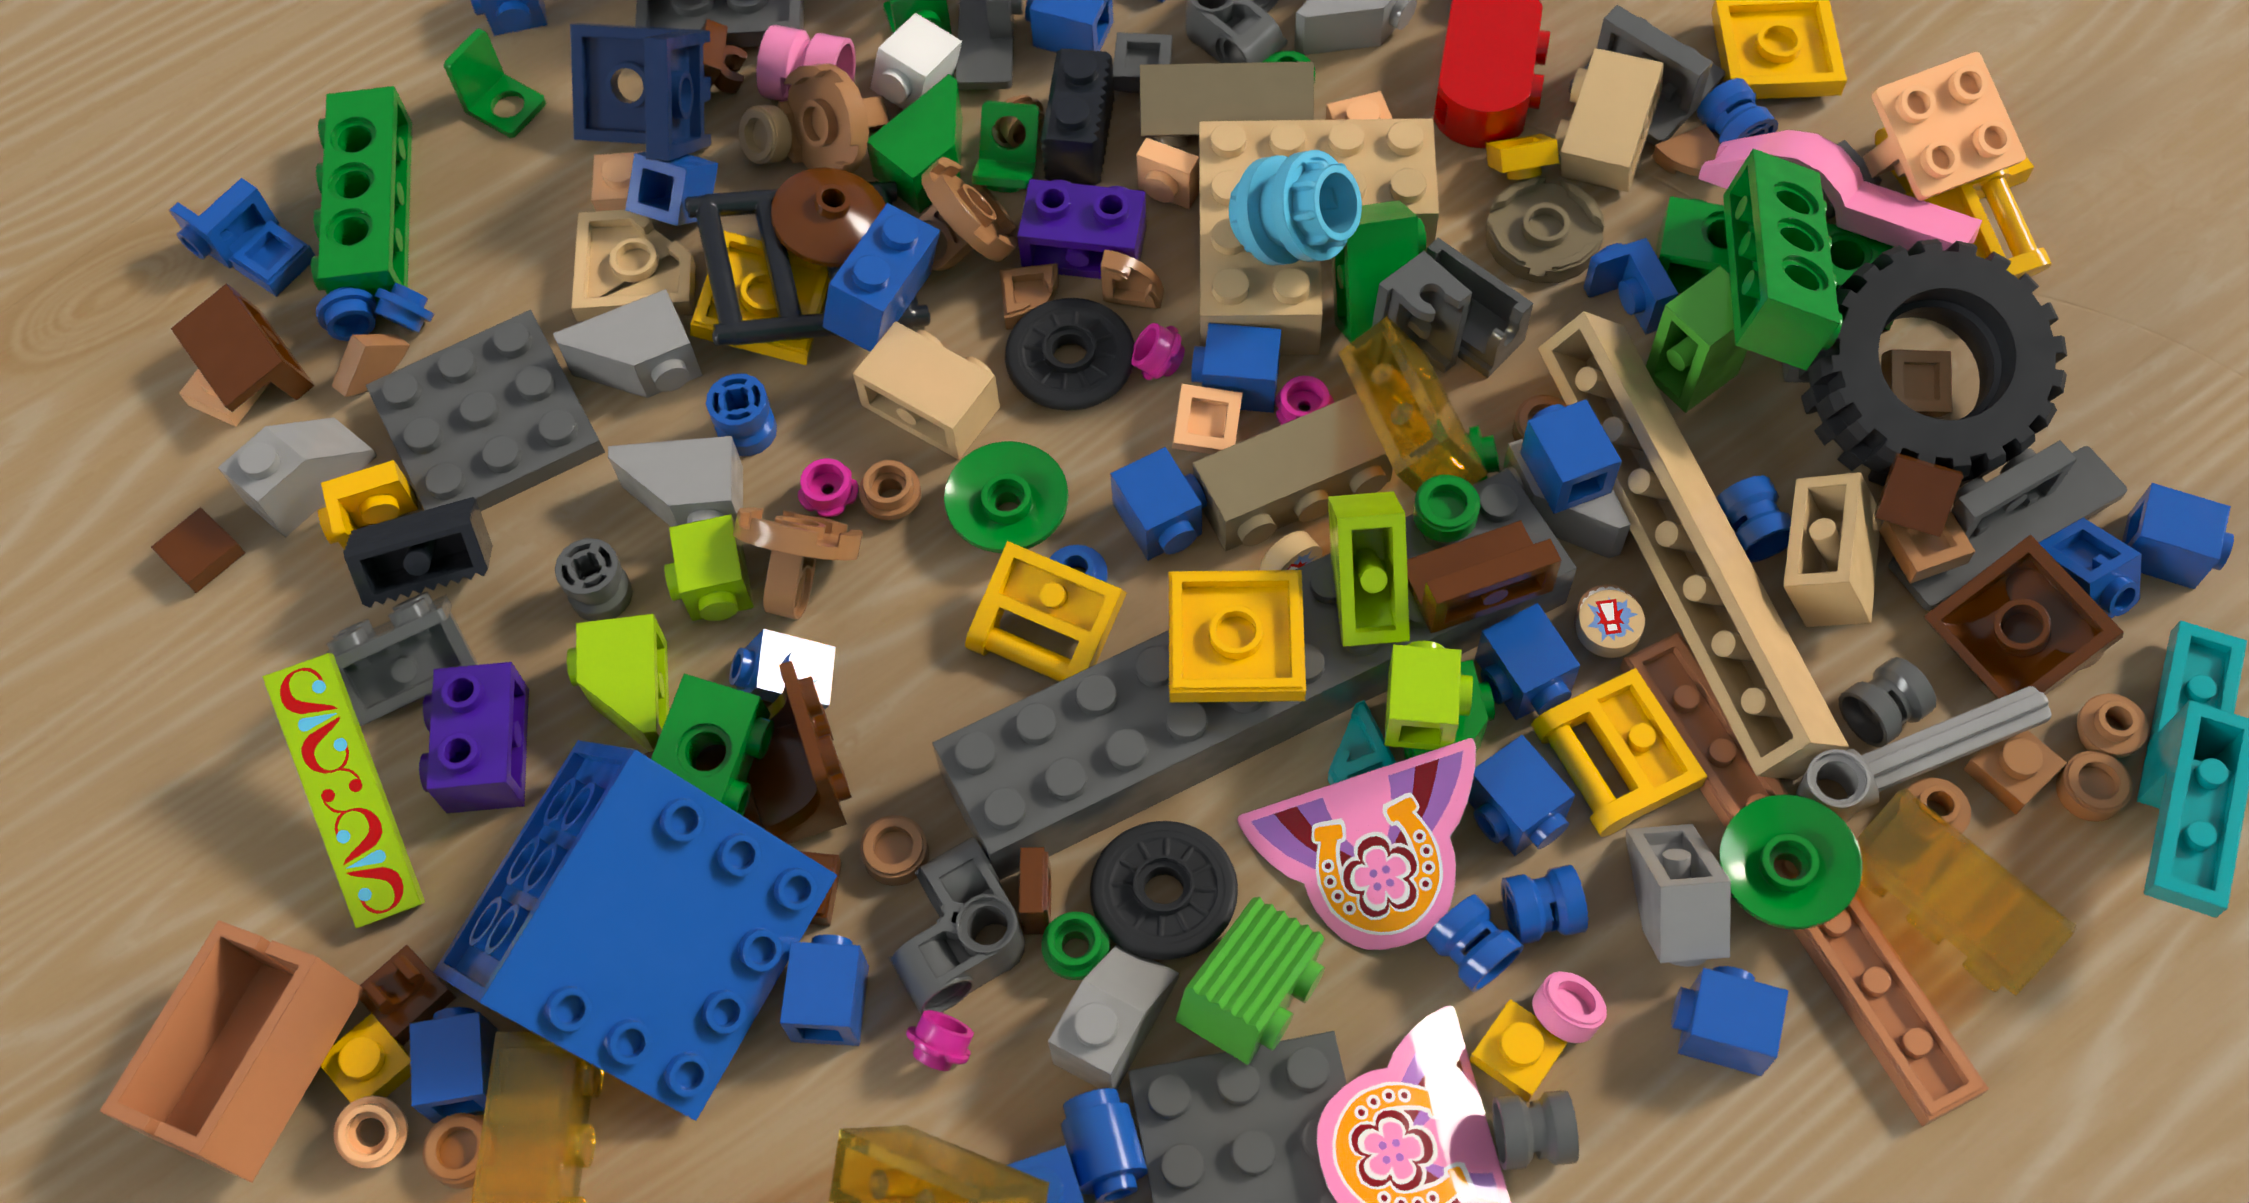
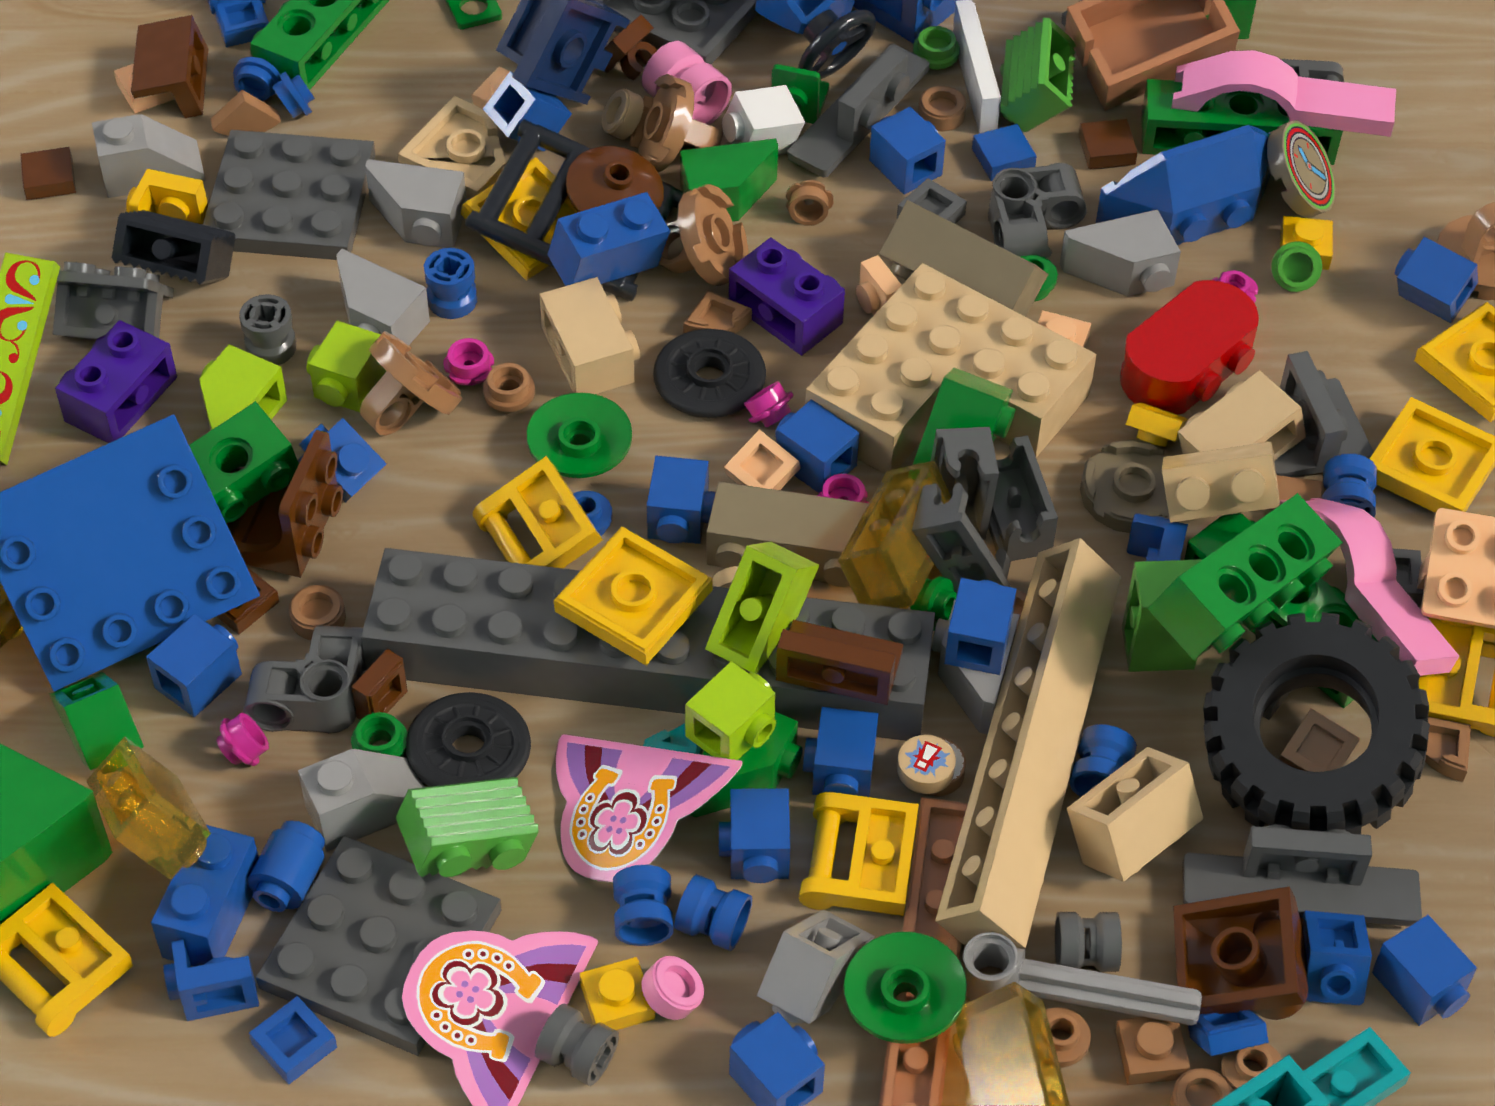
camera: 30 degrees right, 10 degrees down
(774, 1122) = (95, 717): none -> green slope
(1001, 167) = (770, 220): green bracket -> none
(1078, 116) = (848, 219): black brick -> none
(1129, 281) = (790, 347): medium nougat tile -> none
(1295, 208) = (913, 342): medium azure piece -> none
(1446, 508) = (857, 605): green tile -> none
(1471, 384) = (954, 541): none -> dark grey hinge
(1652, 178) = (1220, 482): none -> tan brick
(1918, 494) = (1219, 804): reddish brown tile -> none
(1924, 554) = (1214, 850): medium nougat plate -> none
(2078, 706) = (1228, 1032): none -> blue tile

